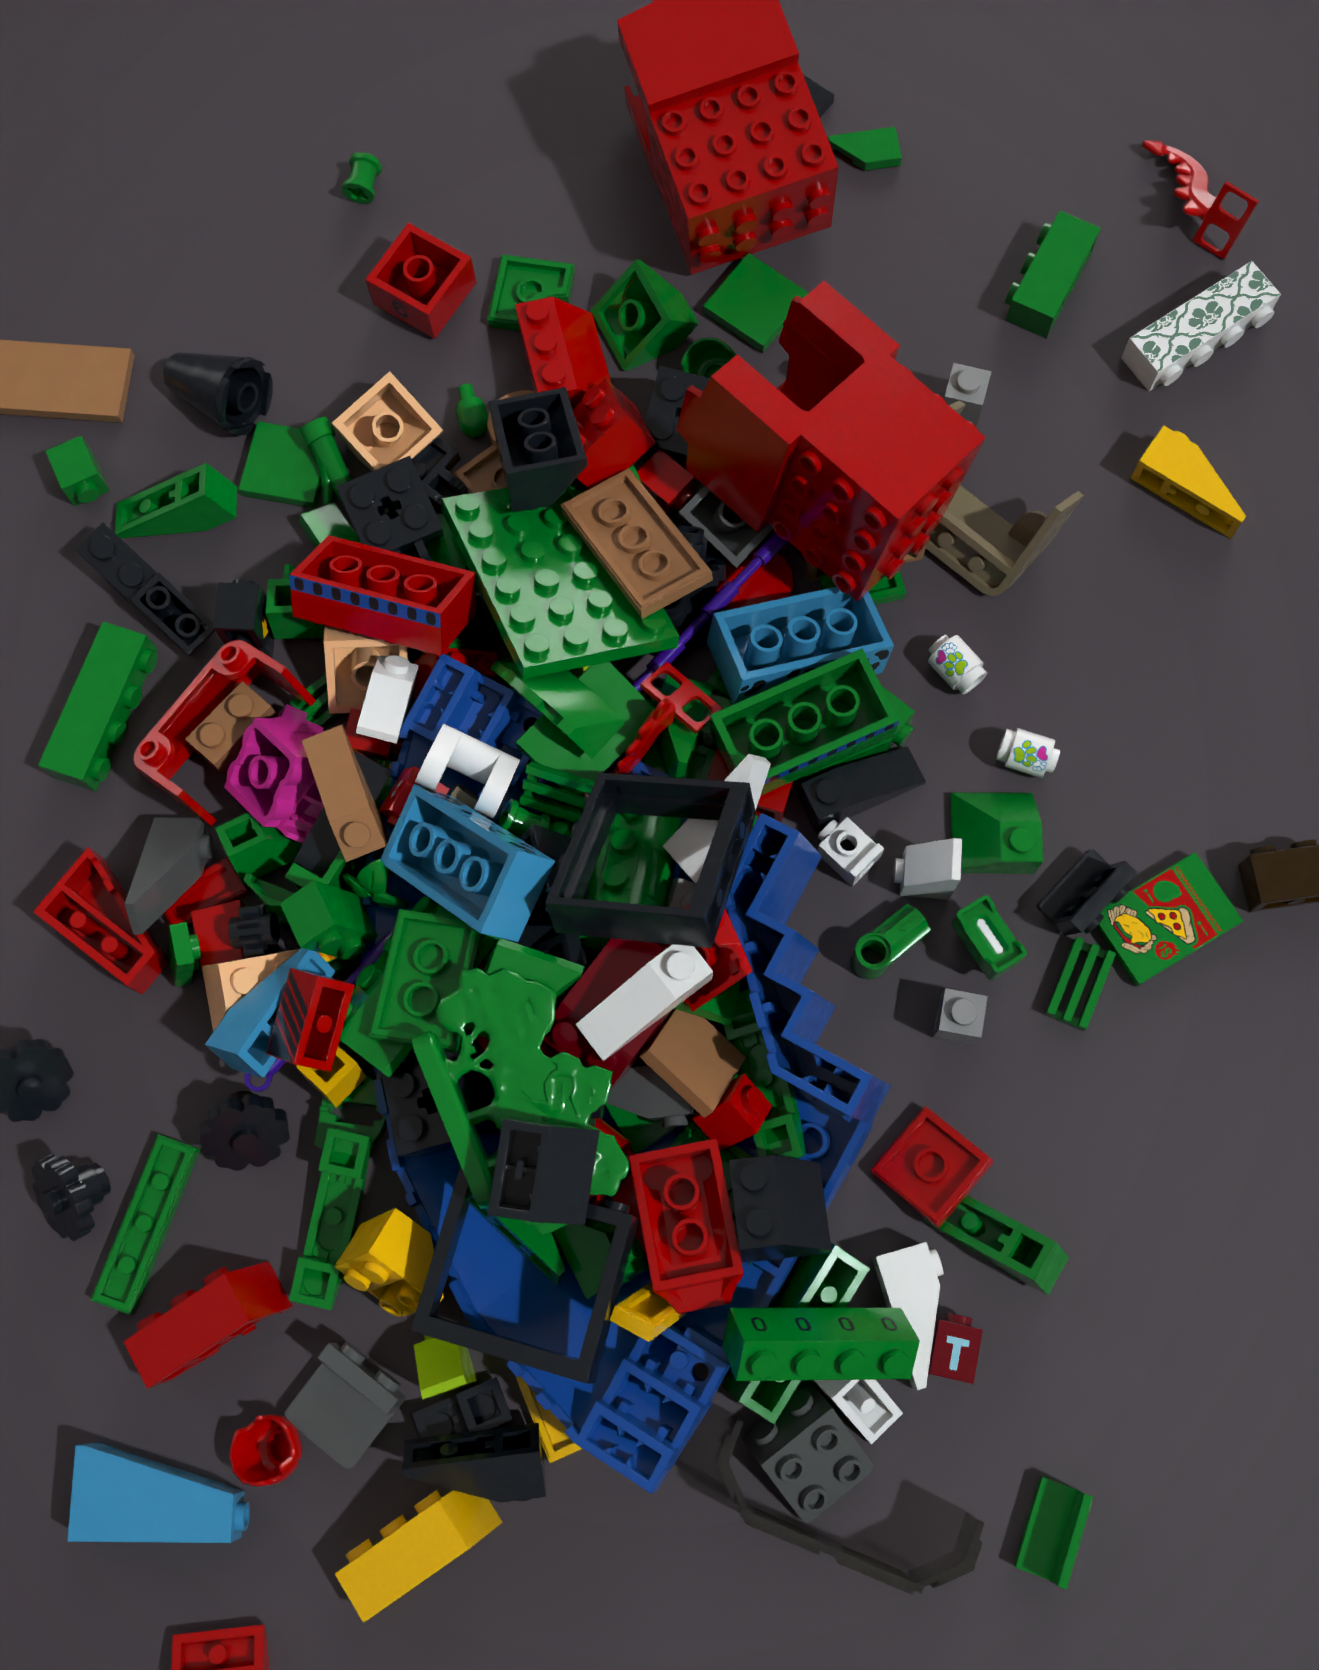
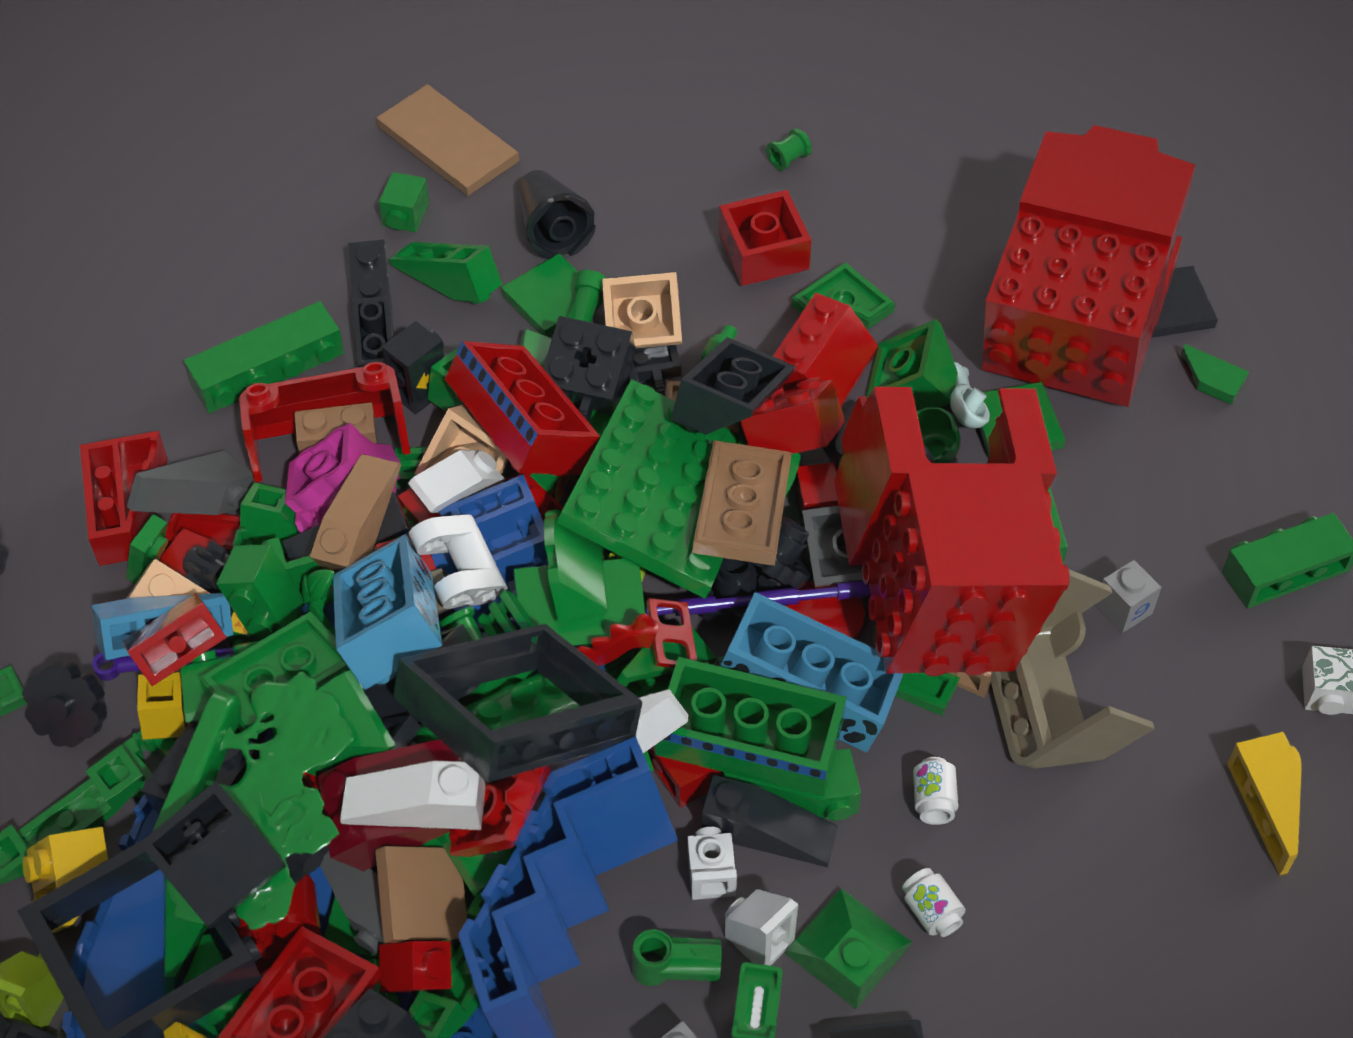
camera: 35 degrees right, 20 degrees down
(713, 316) = (967, 402): none -> light aqua piece

